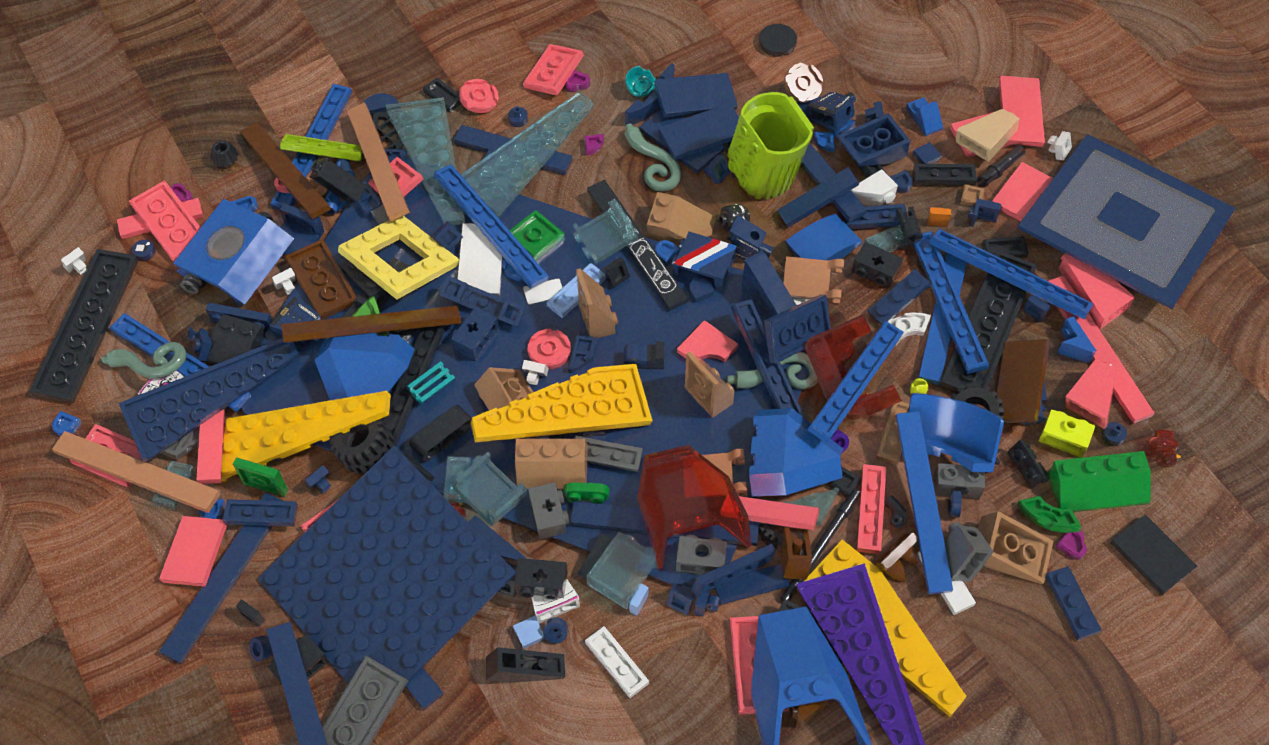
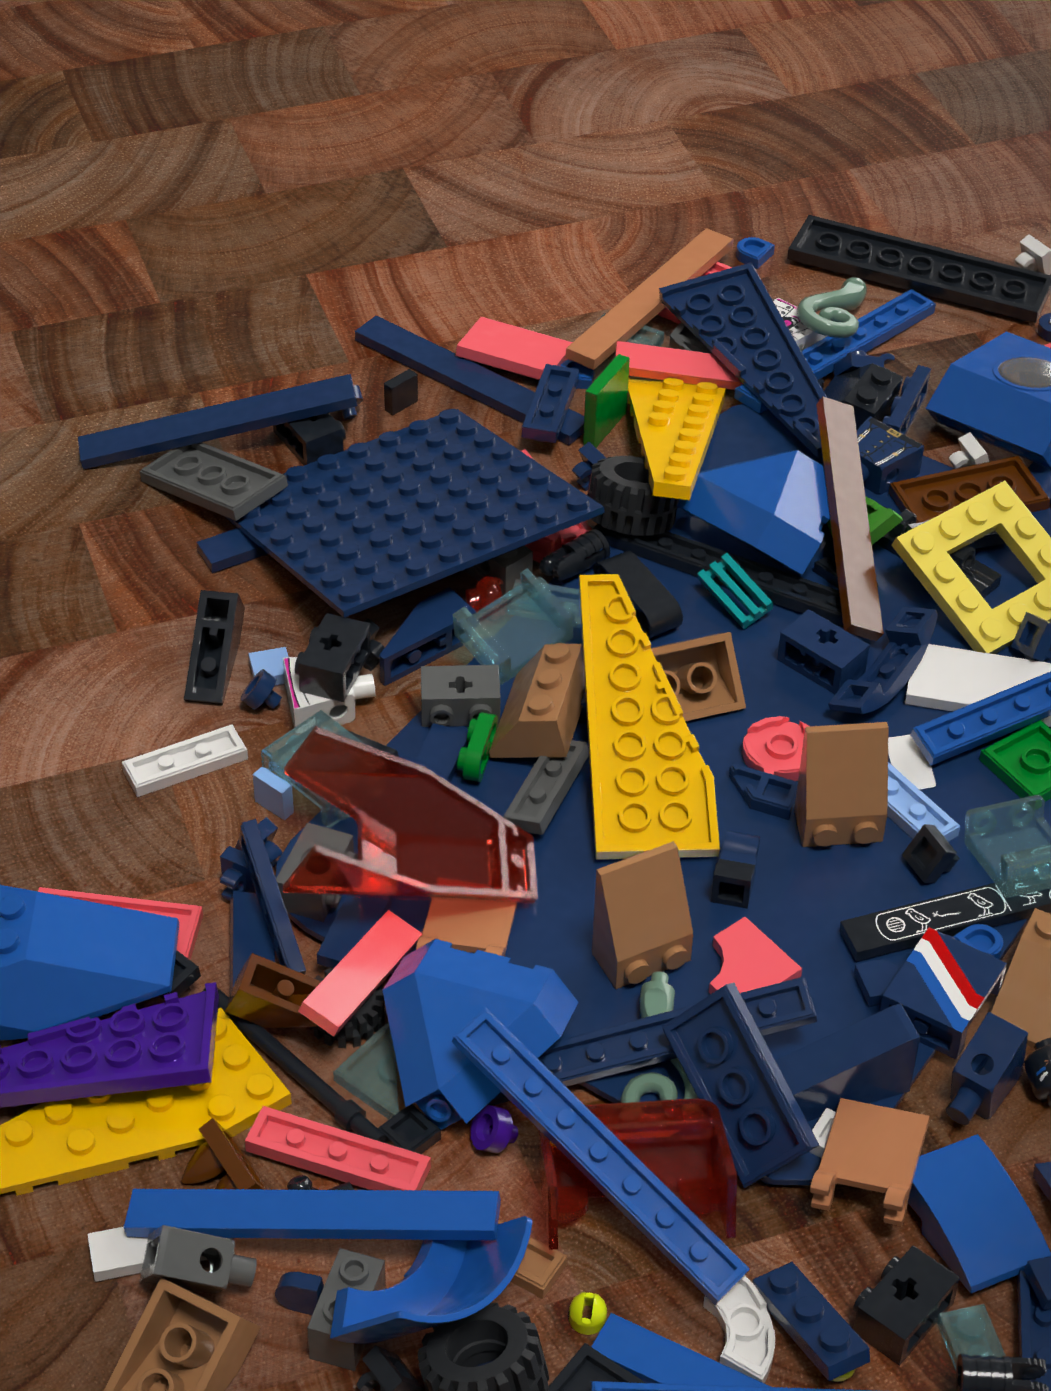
camera: 100 degrees right, 15 degrees down
(534, 370) = (734, 715): white tile -> none

